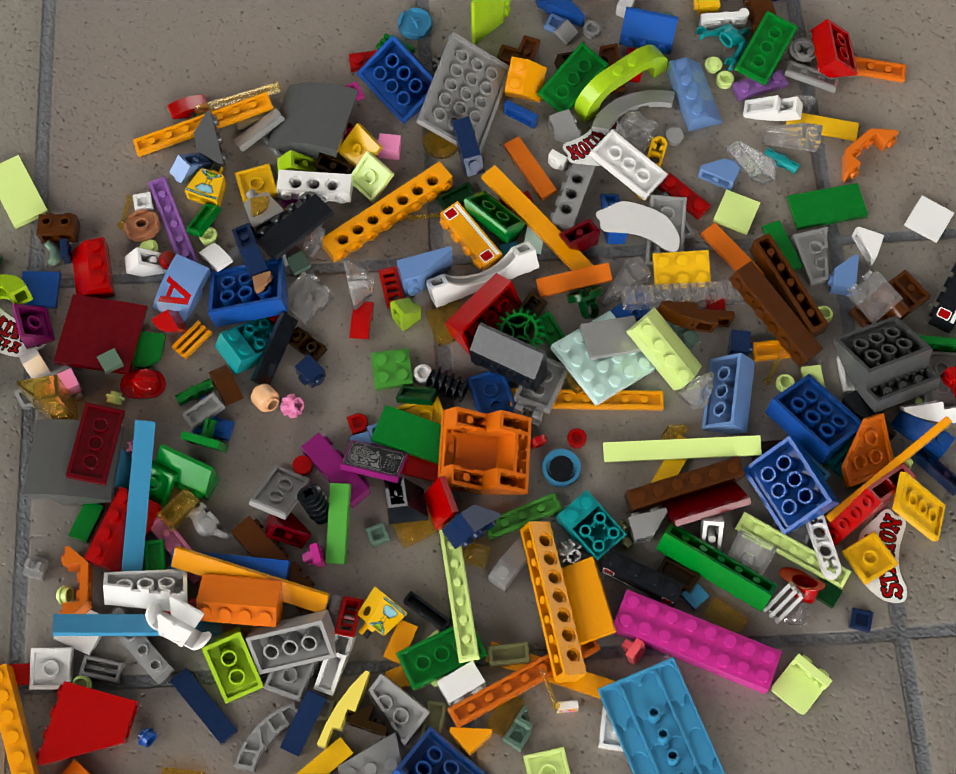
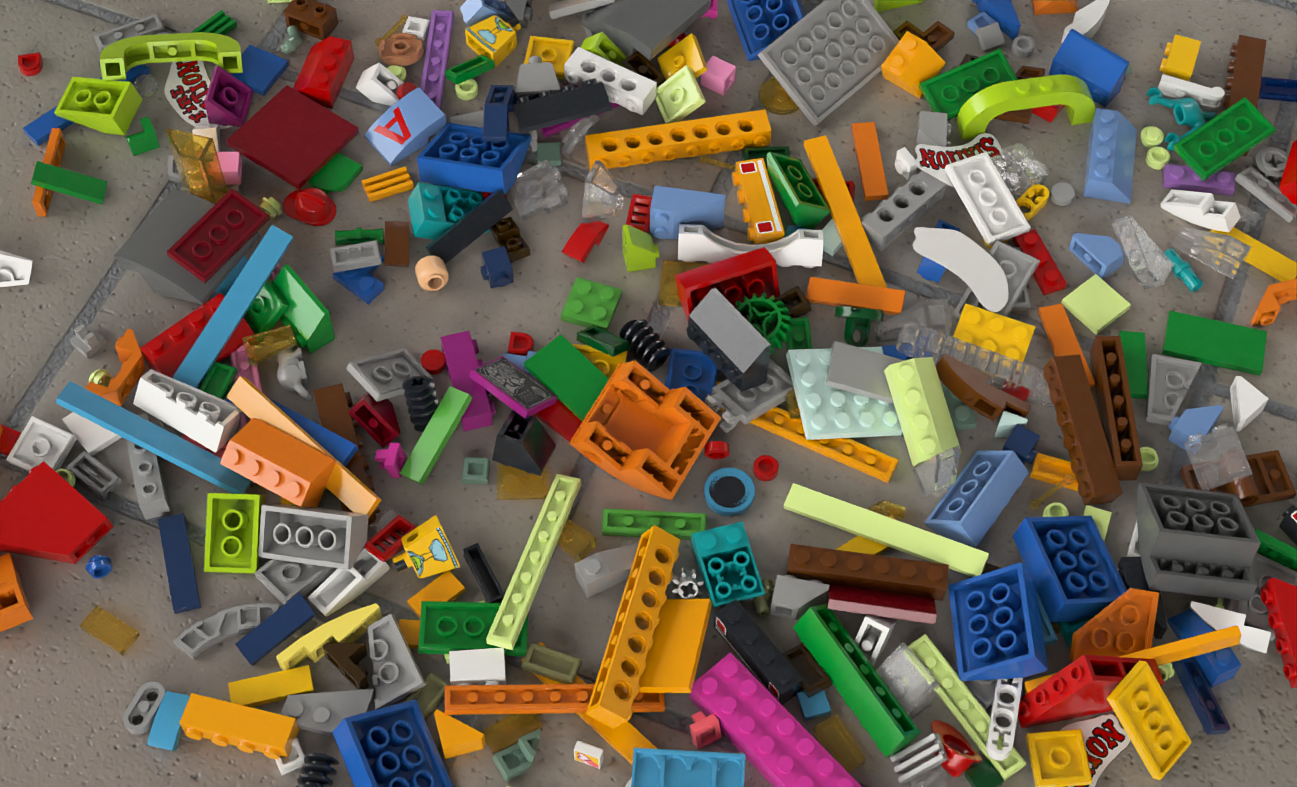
camera: 25 degrees right, 10 degrees down
(65, 251) = (305, 41): dark blue tile -> none
(86, 522) = (166, 317): green tile -> none
(110, 361) = (285, 164): sand green tile -> none
(170, 322) = (372, 151): red brick -> none
(178, 626) = (189, 458): white piece -> none
(205, 438) = (340, 285): green tile -> none
(216, 256) = (461, 109): white slope -> none
(259, 205) = (535, 72): clear yellow tile -> none
(261, 281) = (492, 146): medium nougat tile -> none
(292, 406) = (456, 293): bright pink gear -> none
(421, 373) = (620, 320): white tile -> none
(440, 503) = (562, 460): red tile -> none
(467, 147) = (805, 104): dark blue slope -> none
(470, 525) = (583, 498): dark blue slope -> none
(520, 114) = (888, 100): blue tile -> none
(555, 705) = (573, 741): clear yellow hinge -> none
(581, 236) = (888, 251): dark red slope -> none
(610, 114) = (996, 138): light grey tile -> none
(723, 331) = (1008, 423): none -> light aqua slope

